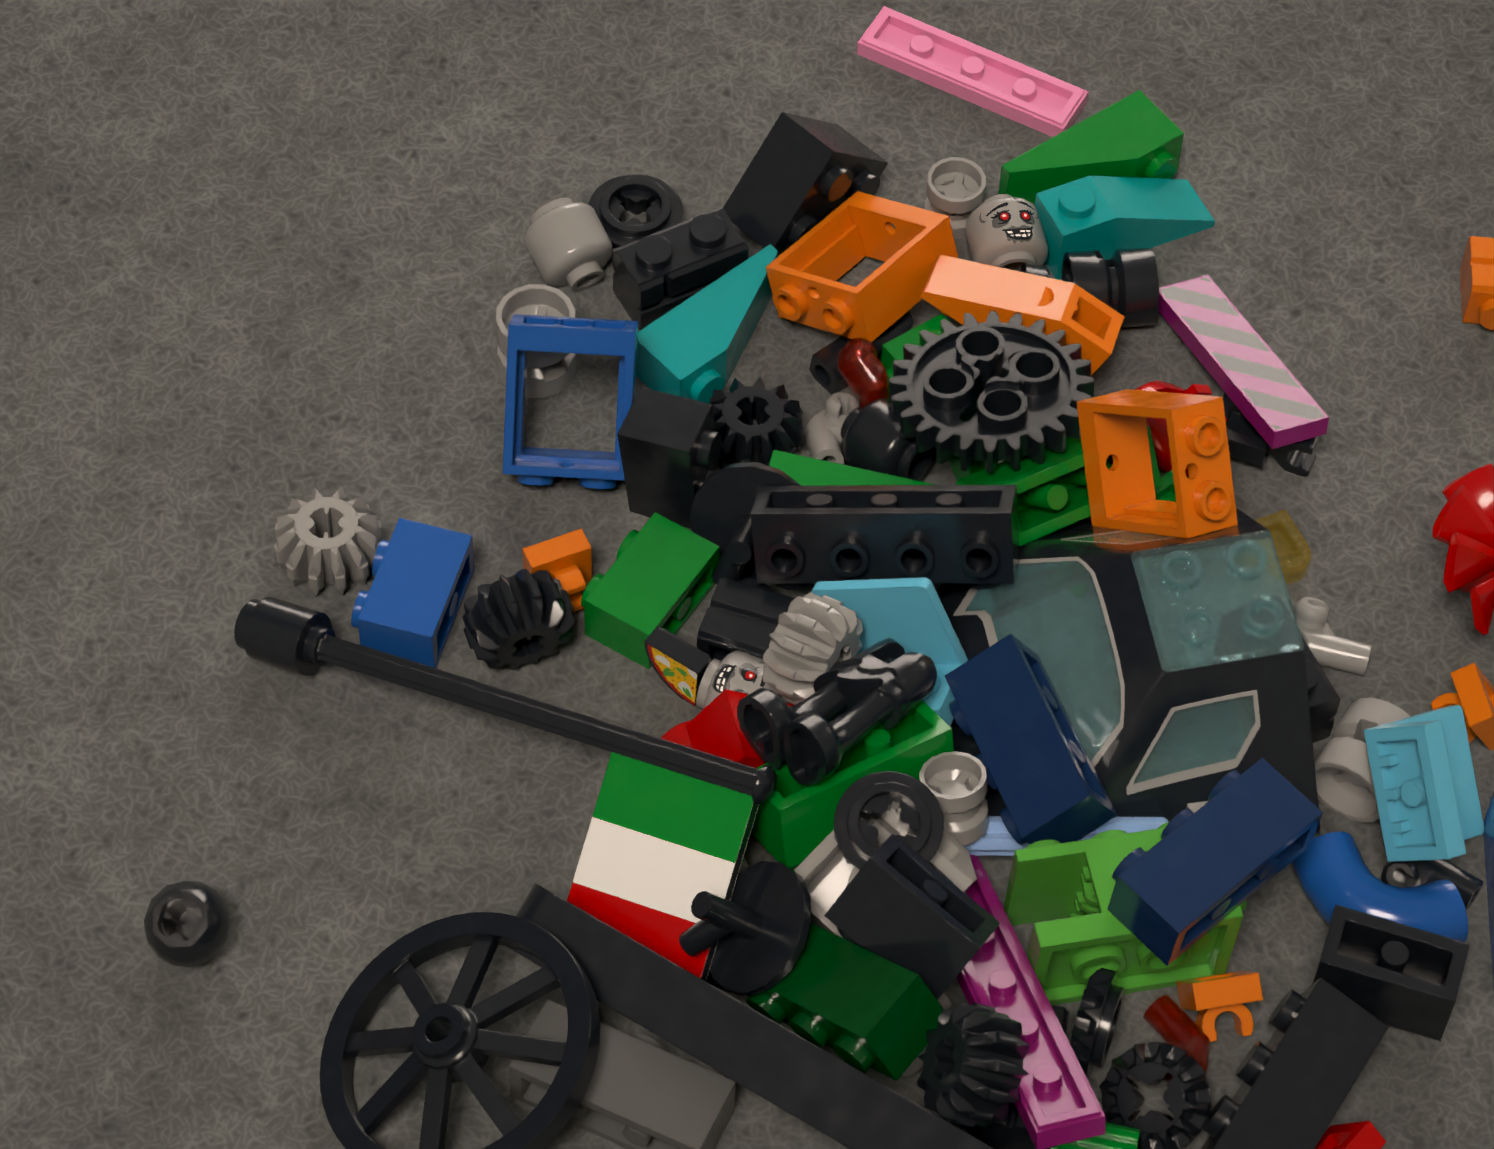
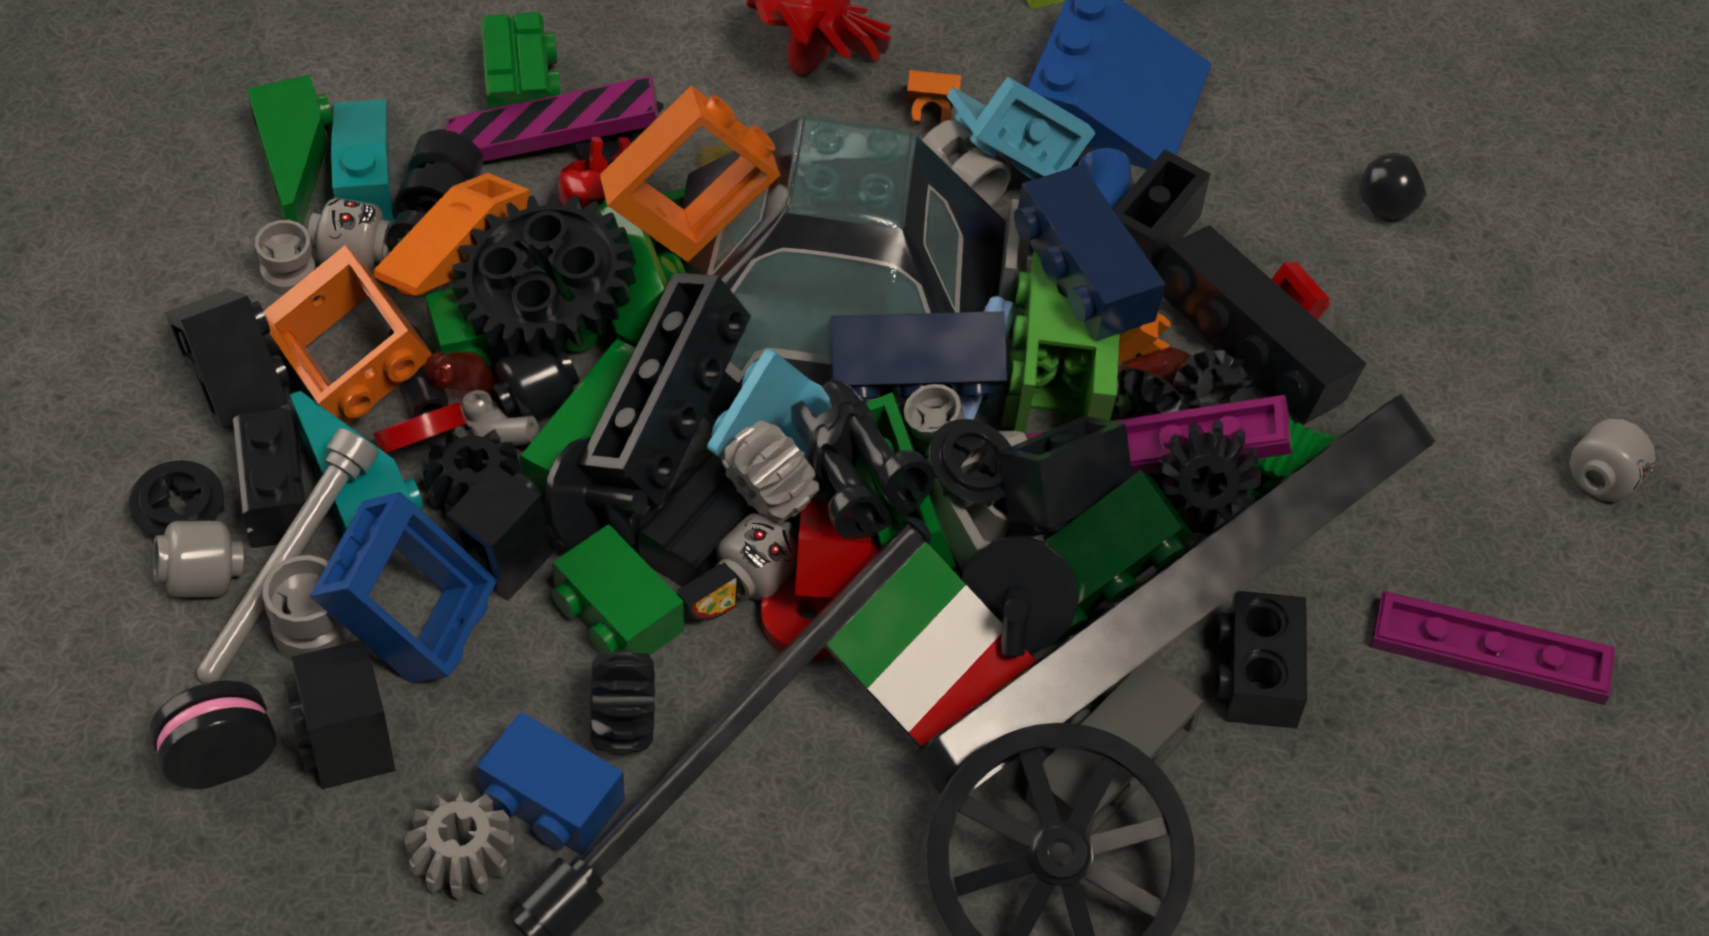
camera: 75 degrees left, 0 degrees up
(371, 311) = (212, 734): none -> black head
(429, 402) = (339, 715): none -> black brick
(566, 559) = (570, 661): orange tile -> none
(702, 304) = (346, 459): none -> light grey piece
(781, 363) = (420, 428): none -> red piece
(972, 72) = (137, 210): bright pink tile -> none
(1309, 309) = (518, 59): none -> green brick

